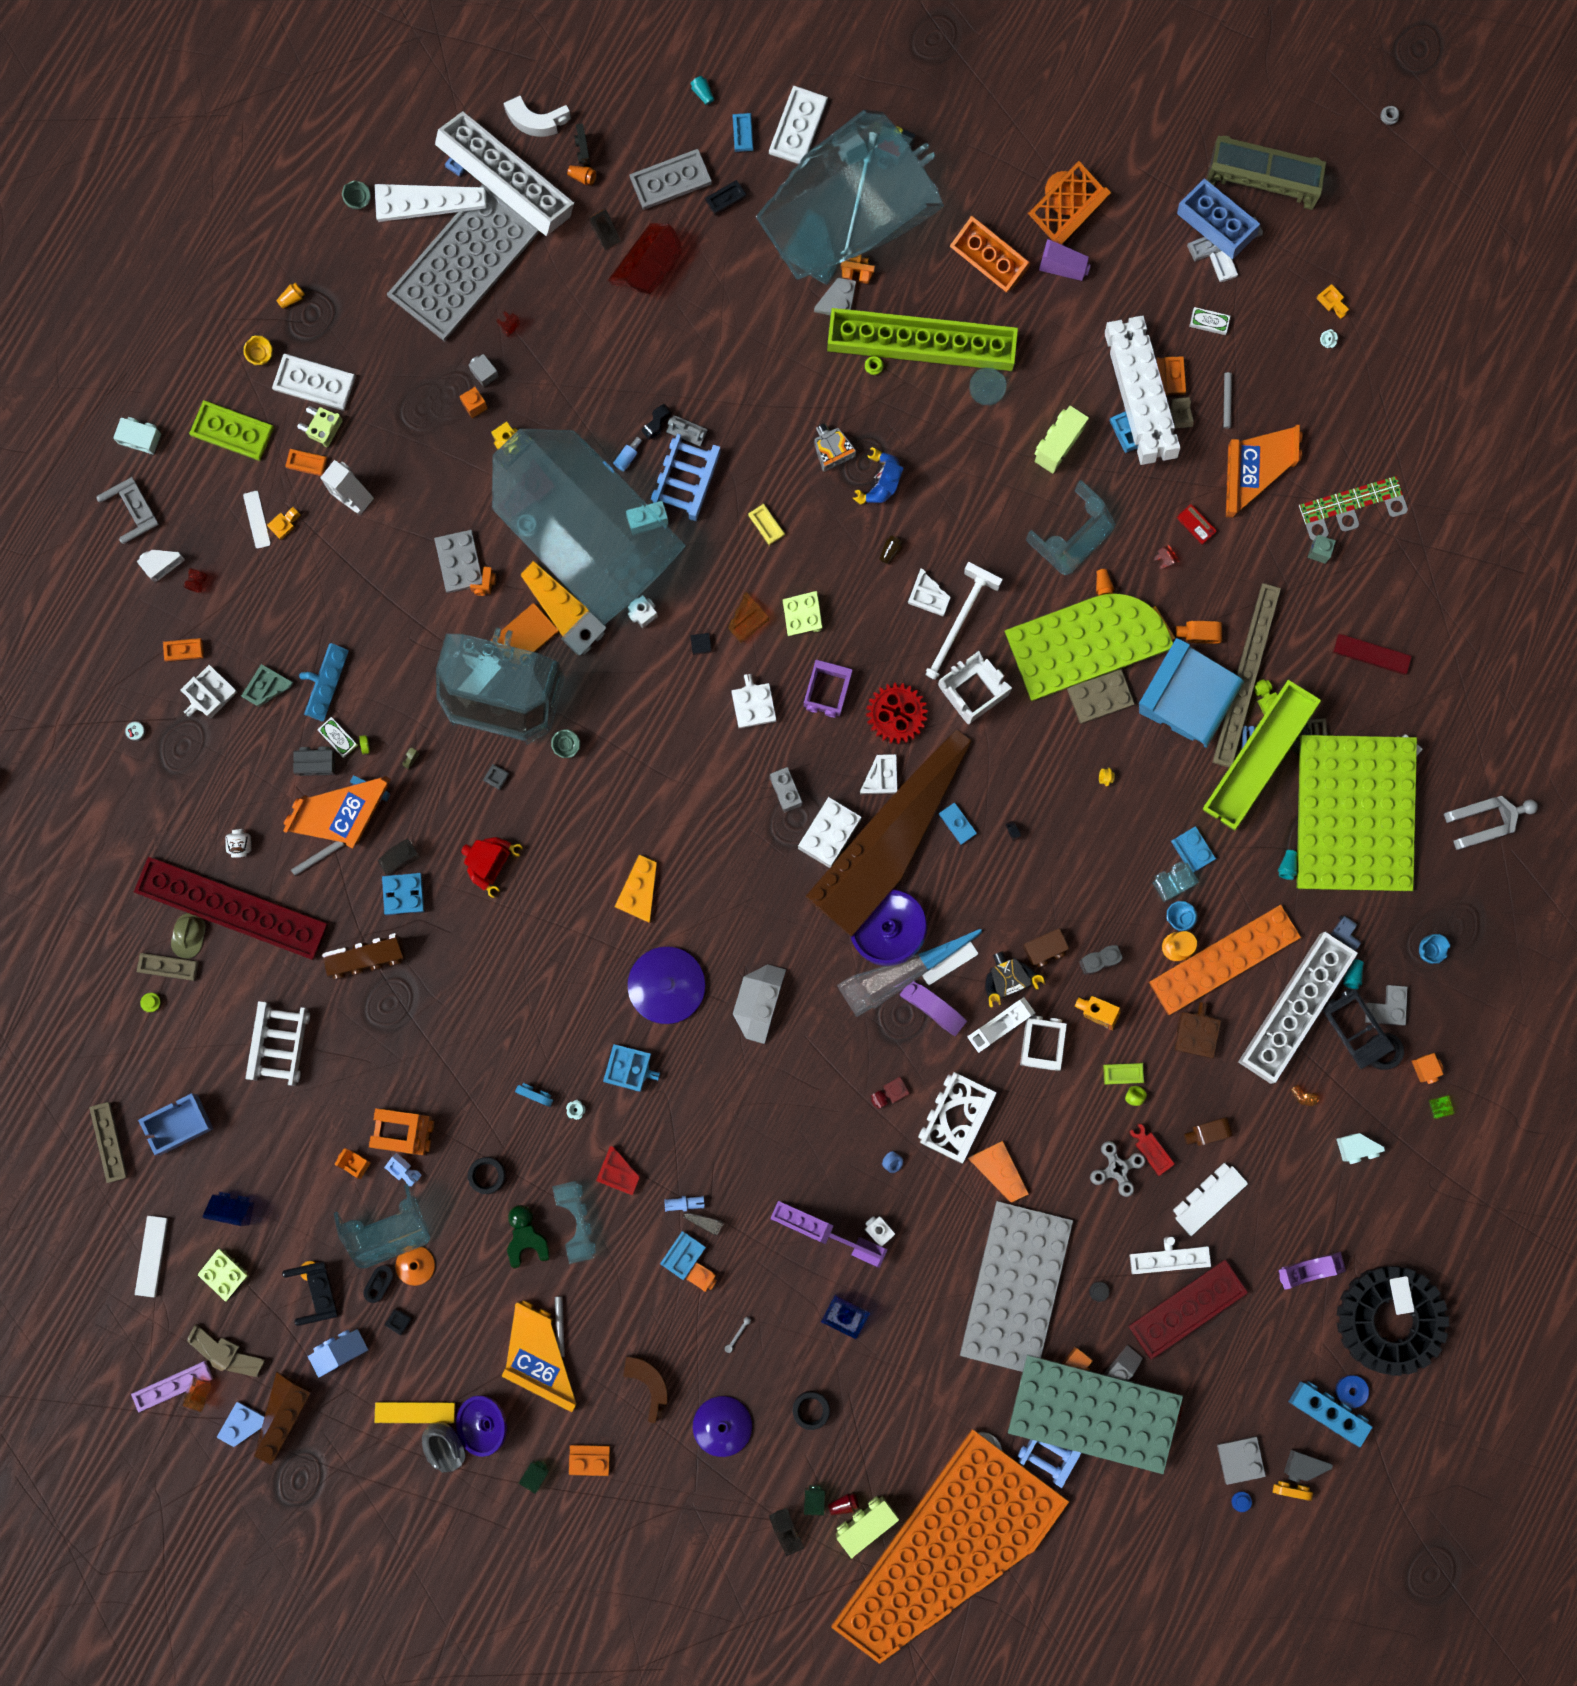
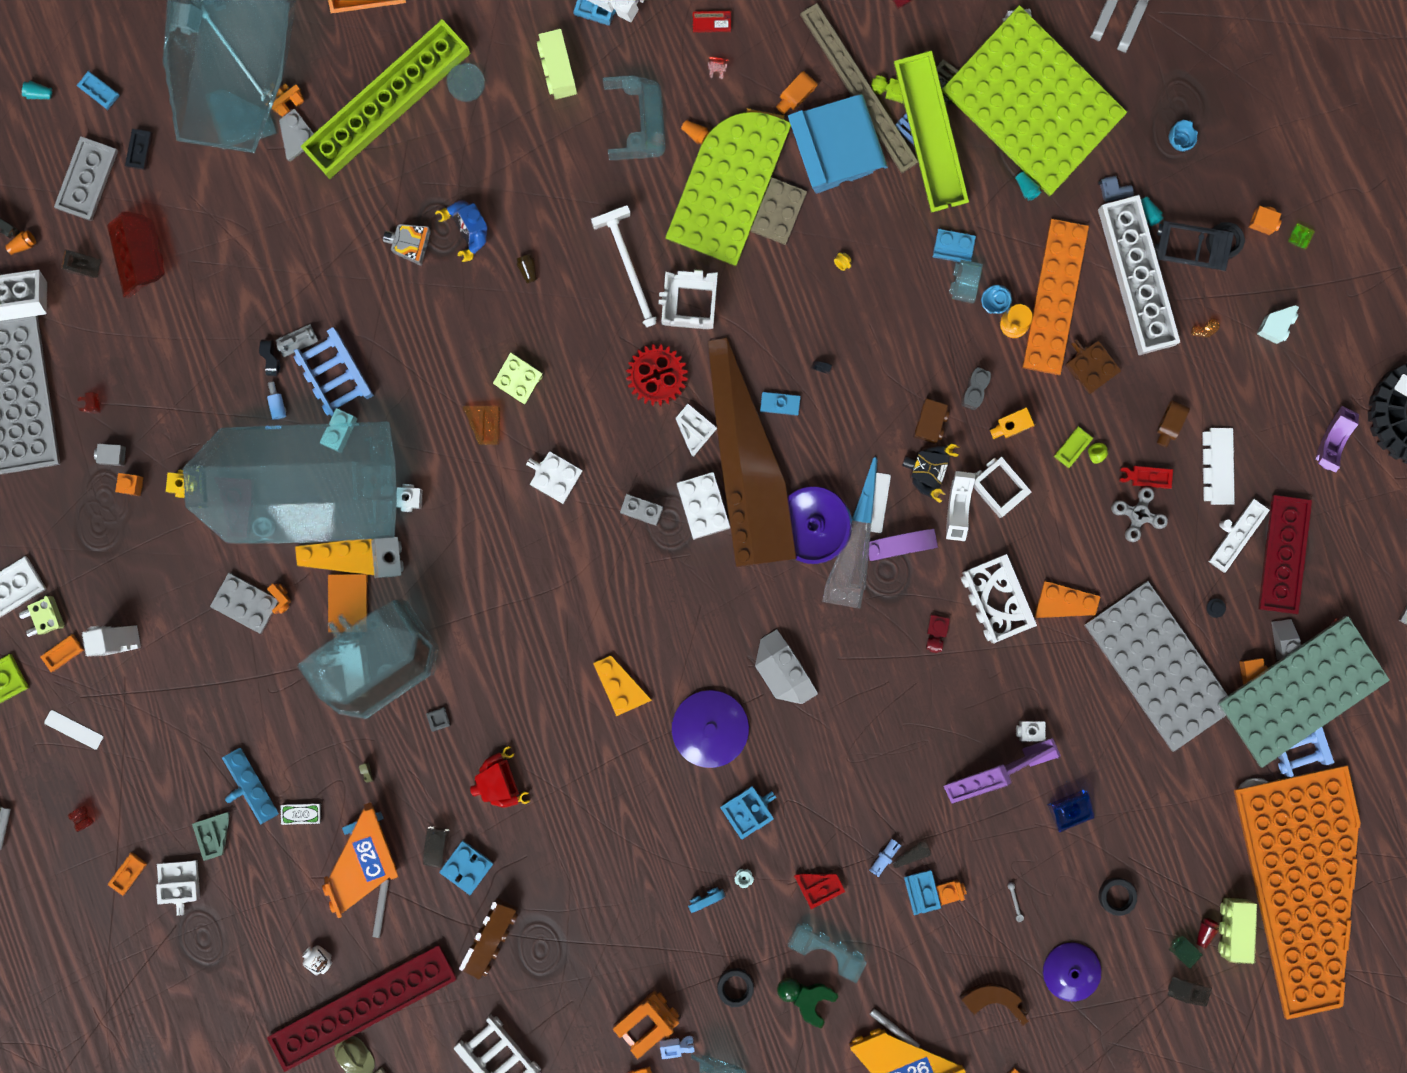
camera: 45 degrees left, 5 degrees up
(135, 731) = (159, 964): tile -> none
(159, 563) = (42, 835): white slope -> none
(282, 525) = (95, 714): light orange plate -> none
(314, 762) = (305, 848): dark grey brick -> none
(364, 744) = (323, 797): lime tile -> none
(565, 743) = (459, 645): sand green hair -> none
(700, 643) = (472, 475): black tile -> none
(766, 524) = (424, 344): light yellow tile -> none
(798, 124) = (130, 43): white tile -> none
(833, 670) = (581, 394): medium lavender window -> none
(873, 360) = (372, 148): lime plate -> none
(892, 1162) = (989, 676): medium blue tile -> none
(928, 595) = (587, 270): white wing -> none
(1393, 1010) = (1201, 206): light grey plate -> none

